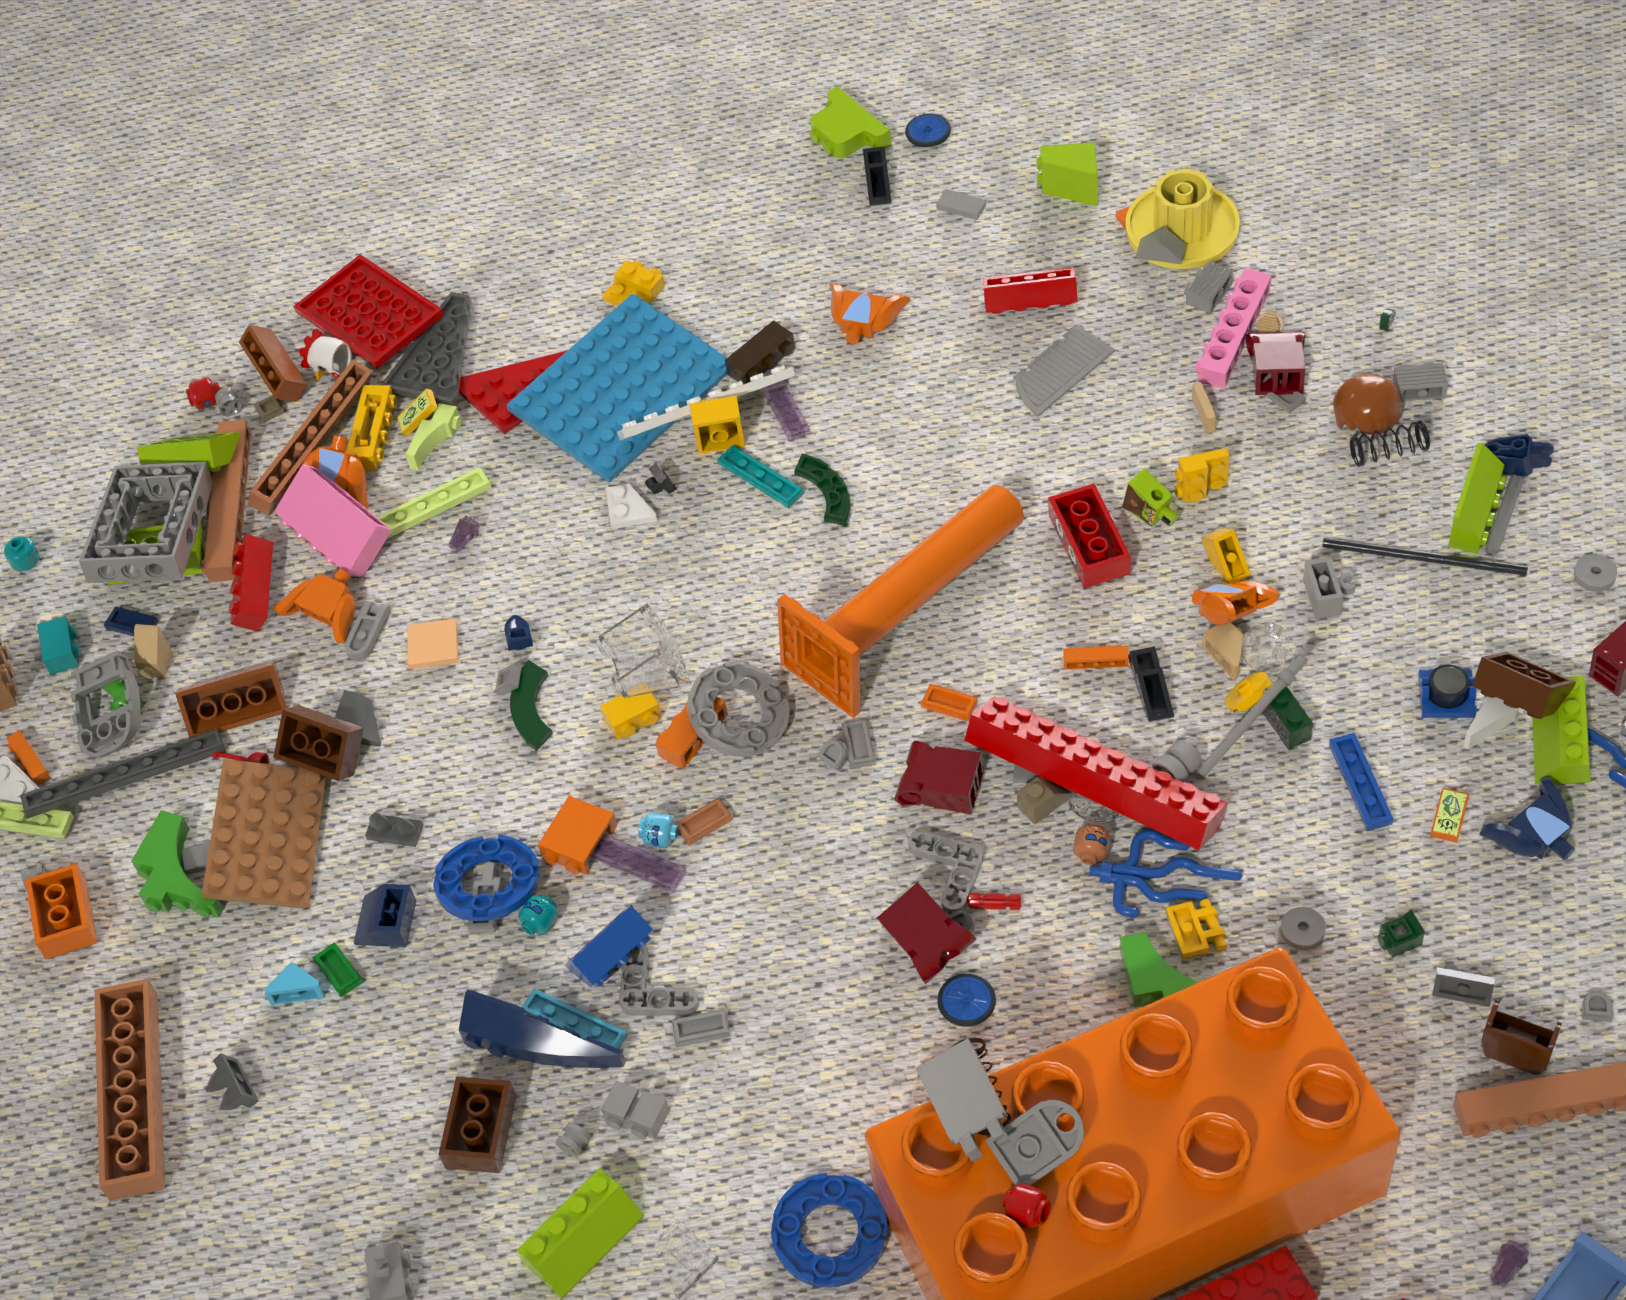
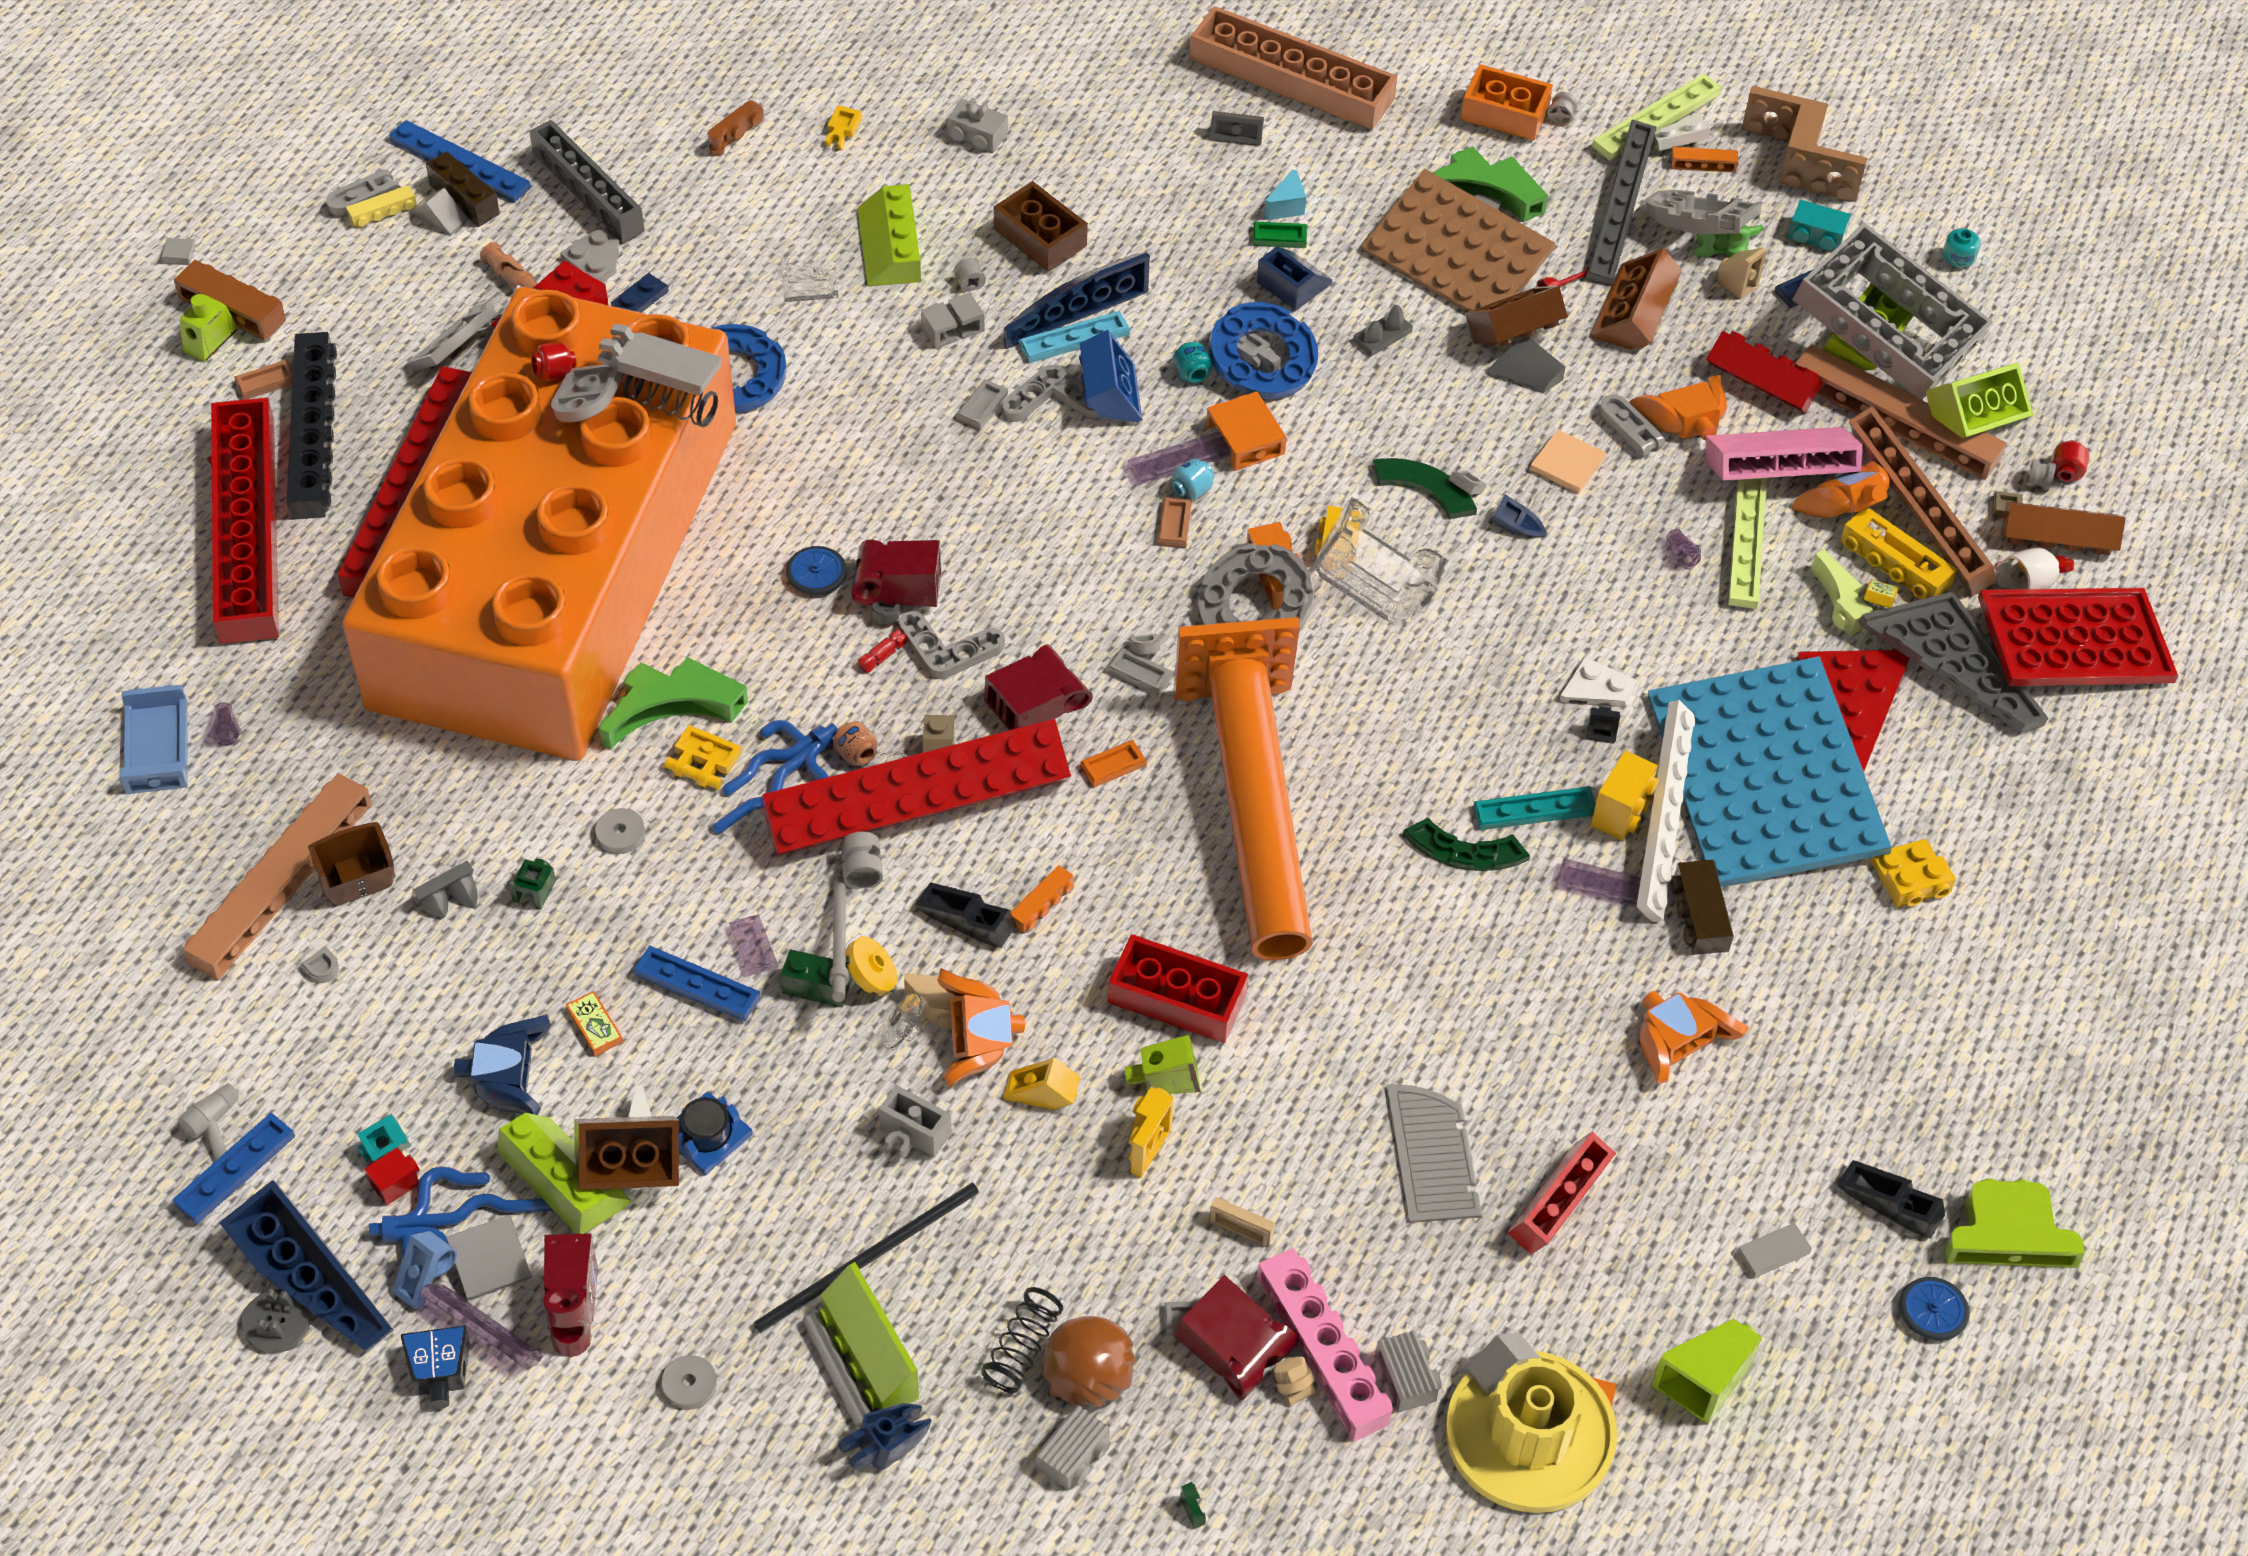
camera: 120 degrees right, 0 degrees up
(1297, 780) = (753, 945): none -> tile

